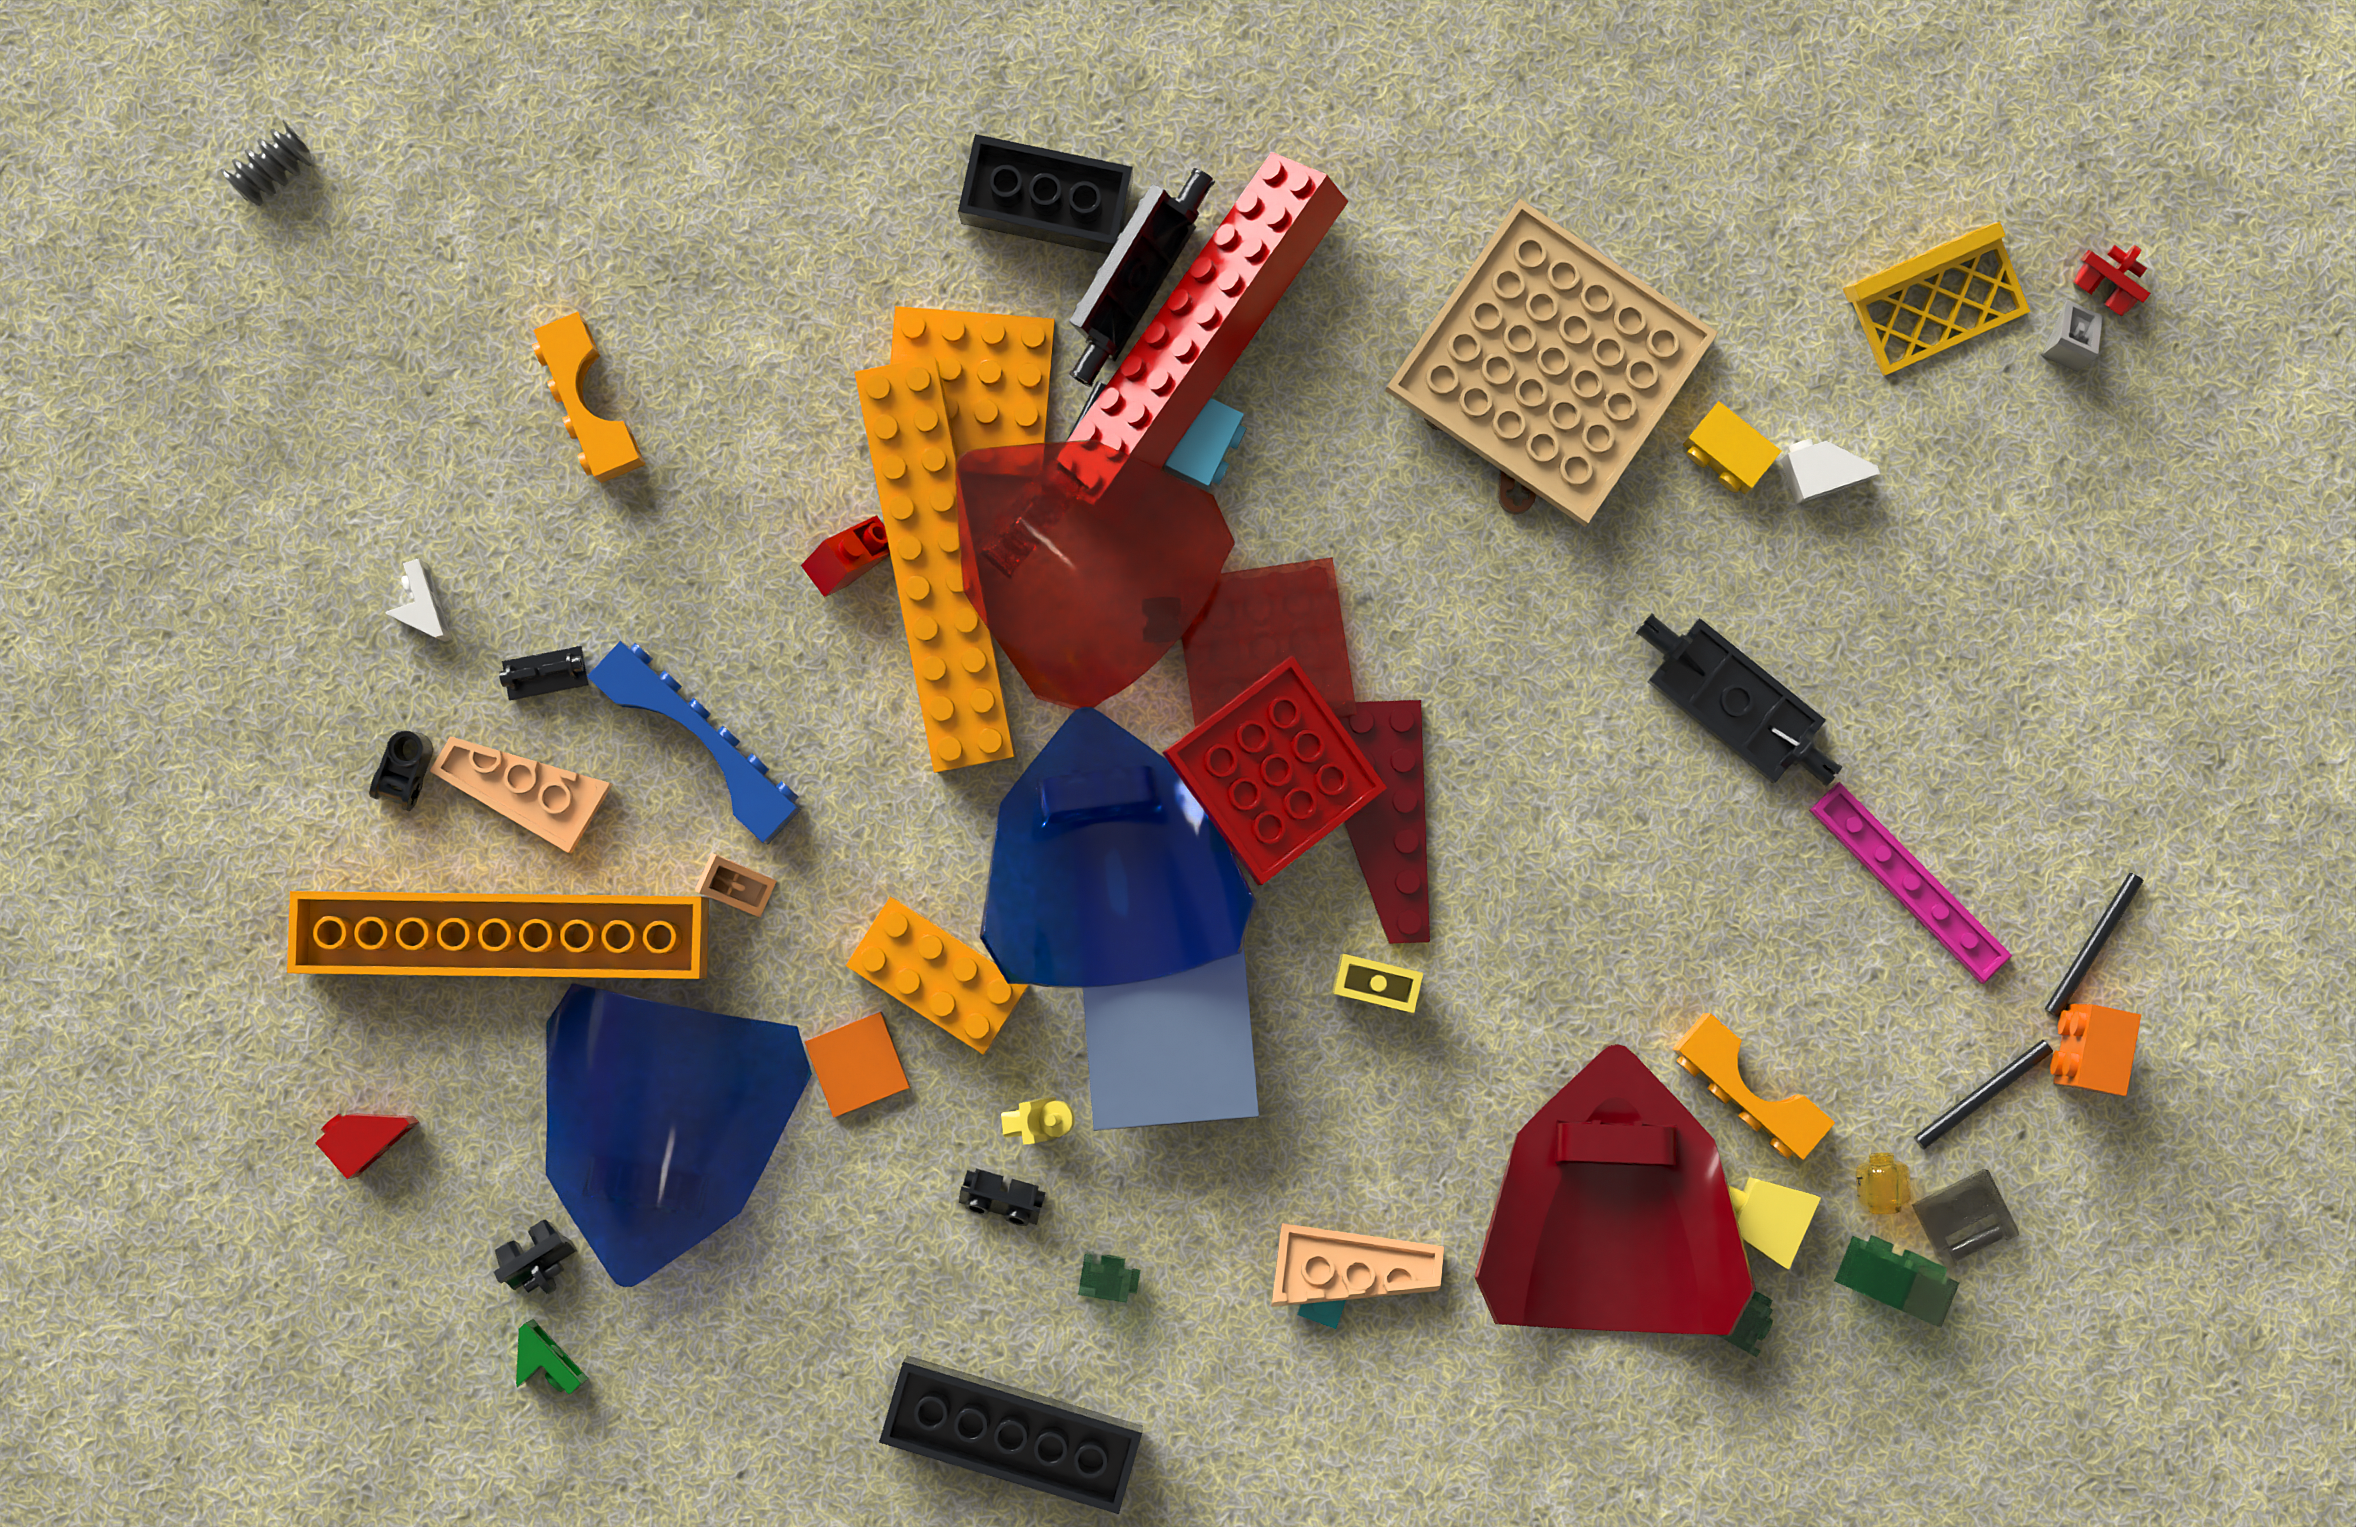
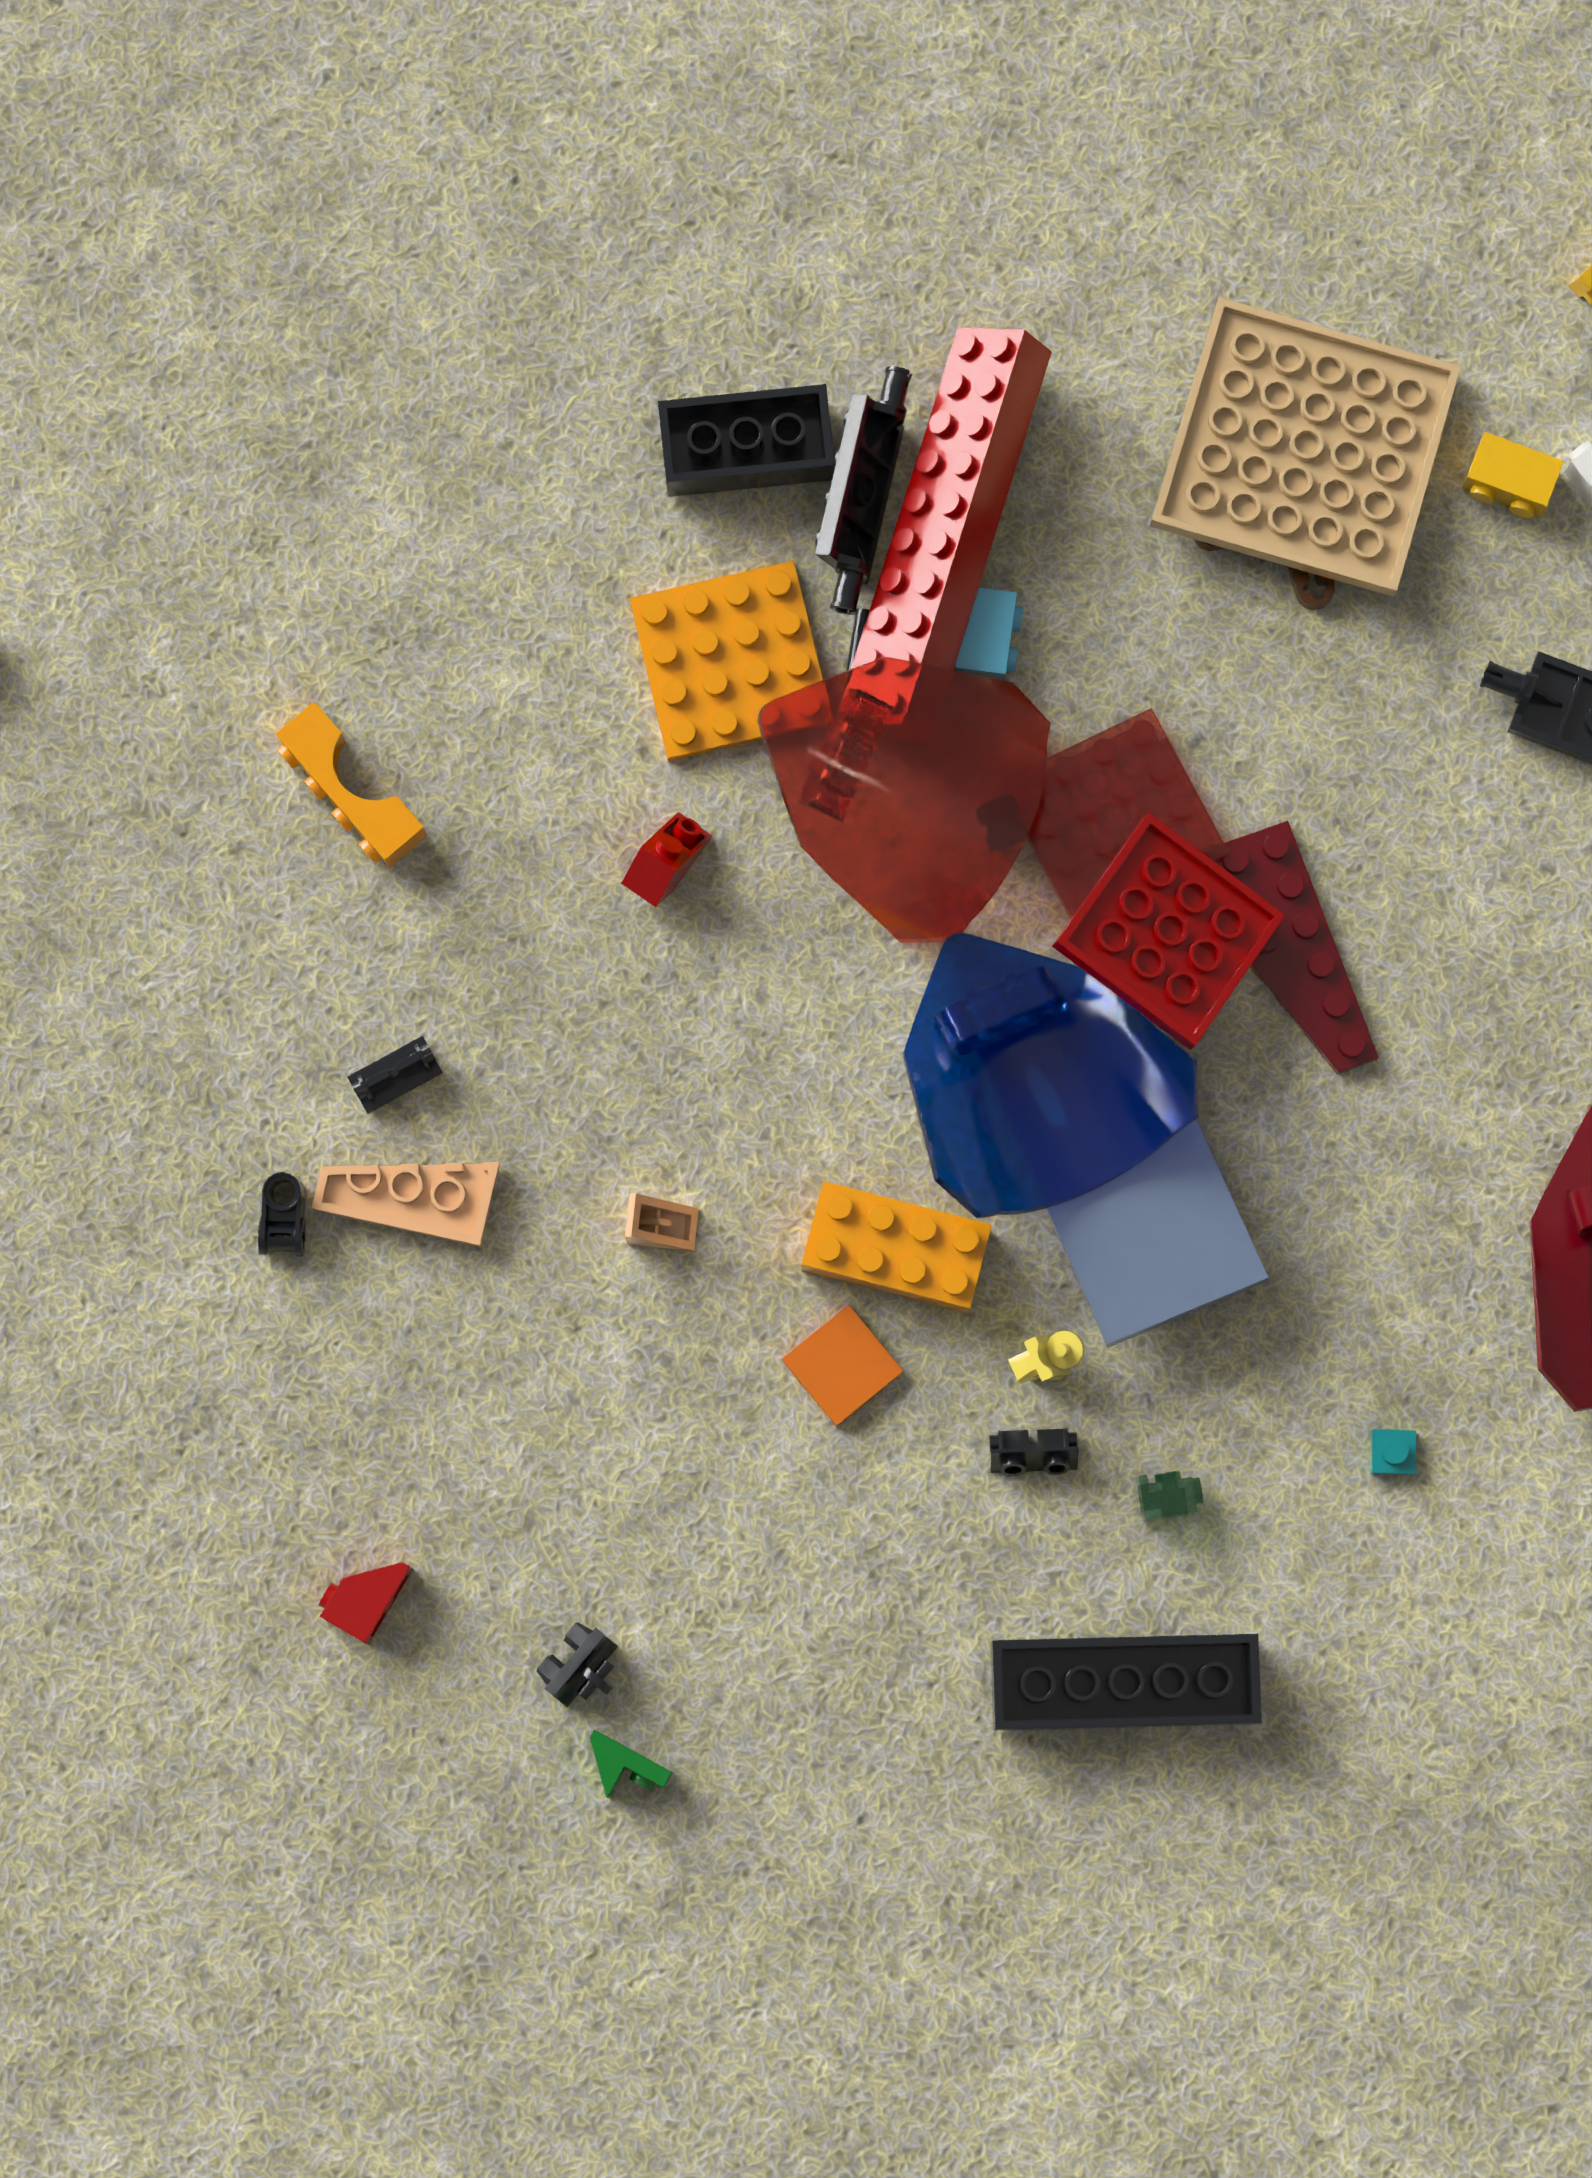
camera: 15 degrees left, 5 degrees down
(426, 611) = (254, 1053): white slope -> none
(498, 934) = (437, 1348): light orange brick -> none
(661, 1120) = (662, 1479): clear blue windscreen -> none
(754, 797) = (493, 1056): blue arch -> none
(917, 494) = (755, 840): light orange brick -> none
(1338, 1265) = (1403, 1406): light nougat wing -> none
(1377, 983) = (1340, 1113): light yellow brick -> none

